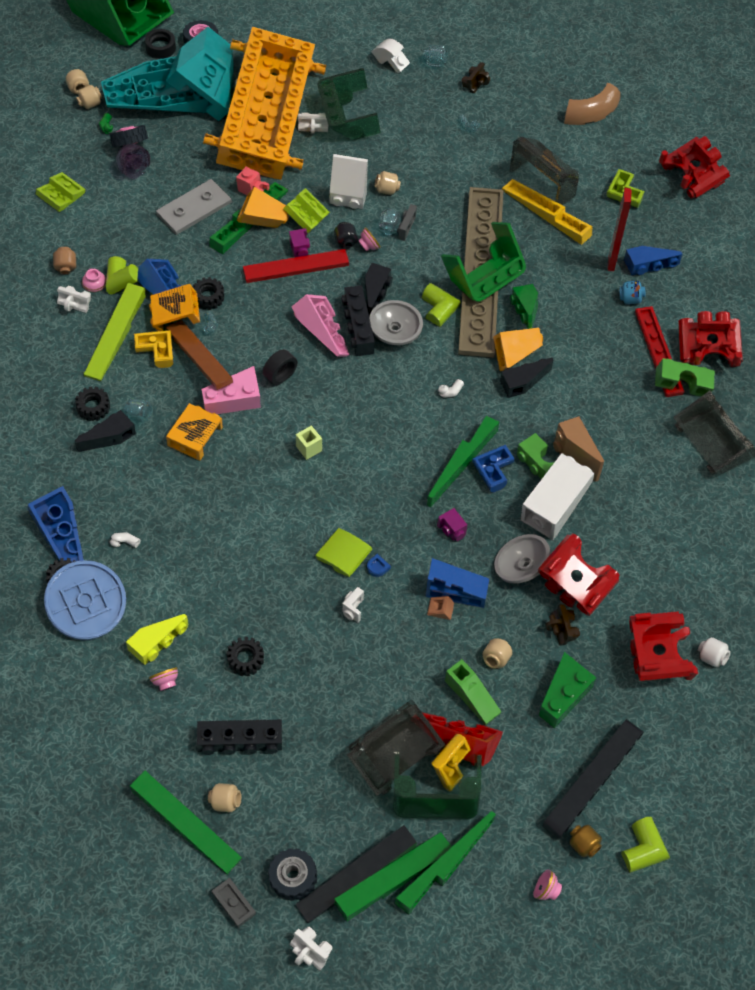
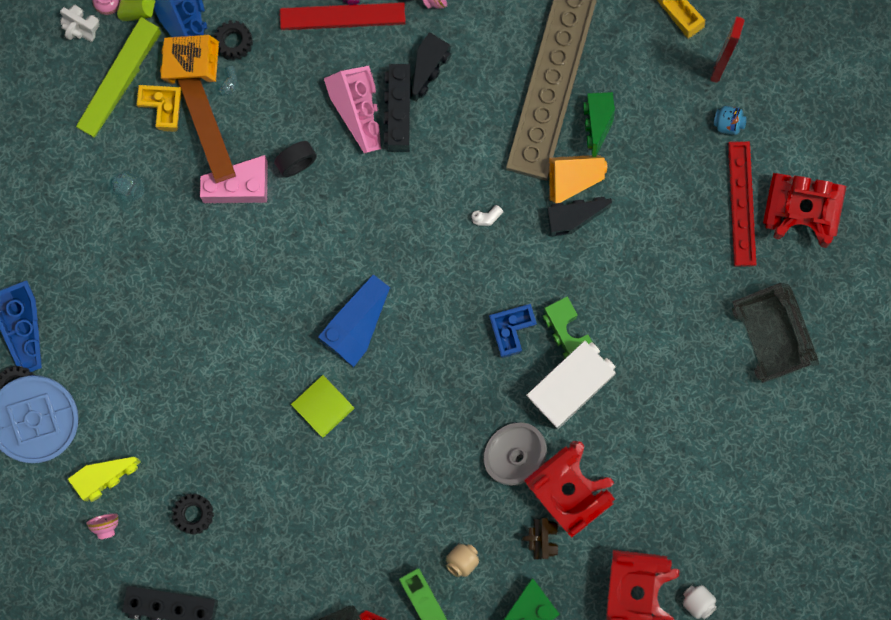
camera: 15 degrees right, 20 degrees up
(94, 412) = (85, 180): black tyre -> none
(110, 432) = (93, 210): black slope -> none
(117, 538) = (86, 345): white arm -> none
(193, 431) = (185, 224): light orange panel -> none
(309, 442) = (309, 263): yellowish green brick -> none
(350, 604) = (319, 468): white bracket -> none
(357, 485) = (354, 324): none -> blue wedge
(377, 566) = (356, 428): blue tile -> none
(398, 316) = (444, 107): light grey dish -> none
(441, 607) = (415, 491): nougat slope -> none
(443, 304) = (505, 98): lime brick -> none
(452, 525) = (449, 395): magenta brick -> none
(456, 583) = (436, 471): blue wedge -> none
(463, 457) = (479, 310): green slope -> none
(502, 268) = (567, 70): green windscreen -> none
(574, 441) = (610, 322): medium nougat slope -> none
(646, 259) = (759, 75): blue slope -> none
(698, 378) = (777, 254): bright green arch -> none

